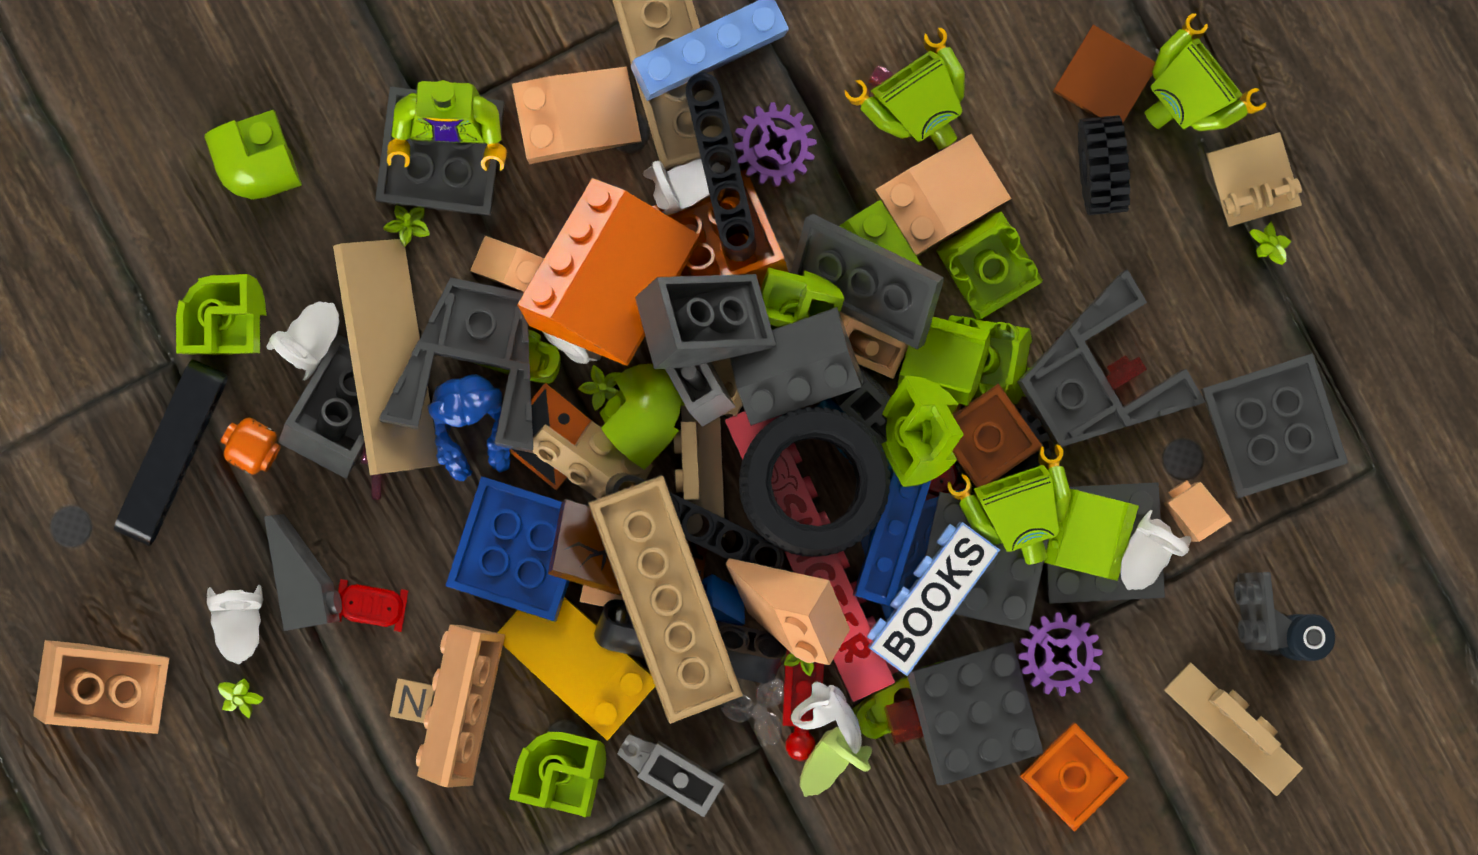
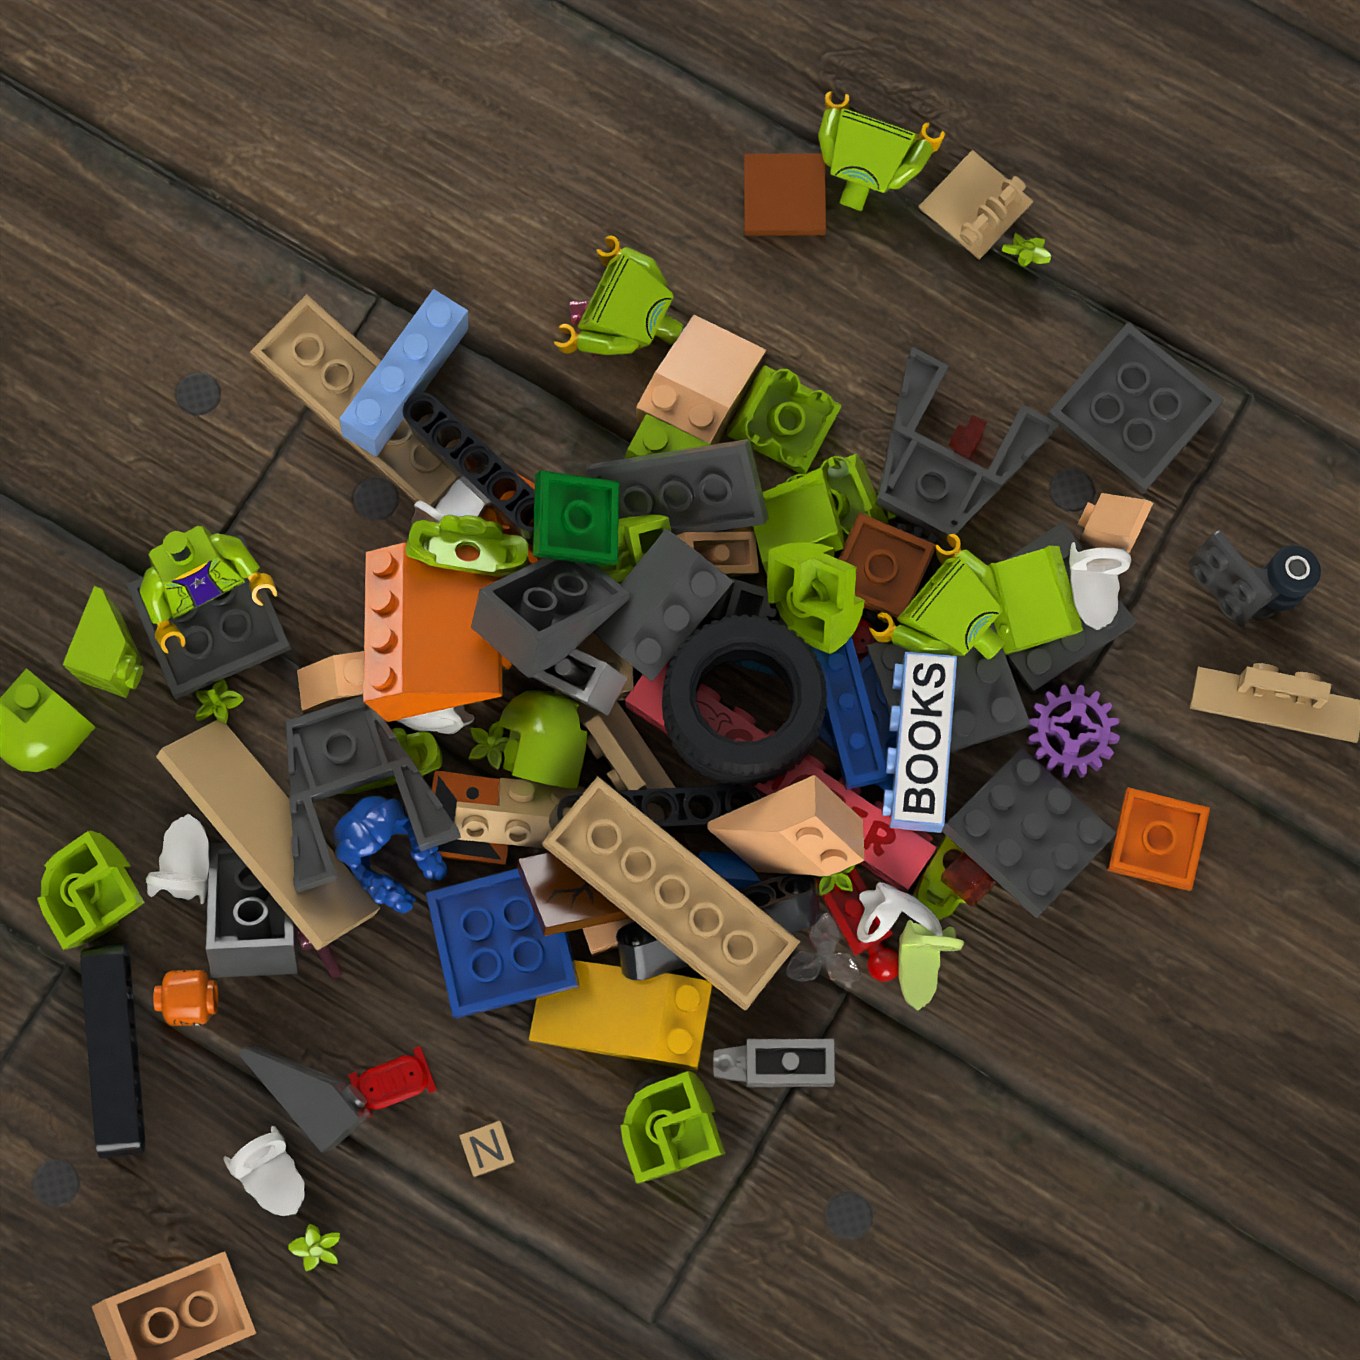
camera: 25 degrees left, 10 degrees down
(344, 131) = (103, 648): none -> lime slope
(459, 706) = (534, 1121): light nougat slope -> none
(576, 113) = (315, 508): light nougat slope -> none
(650, 208) = (437, 544): none -> lime piece
(767, 128) = (525, 412): medium lavender gear -> none
(769, 259) = (576, 518): none -> green tile
(1103, 165) = (832, 263): black tyre -> none

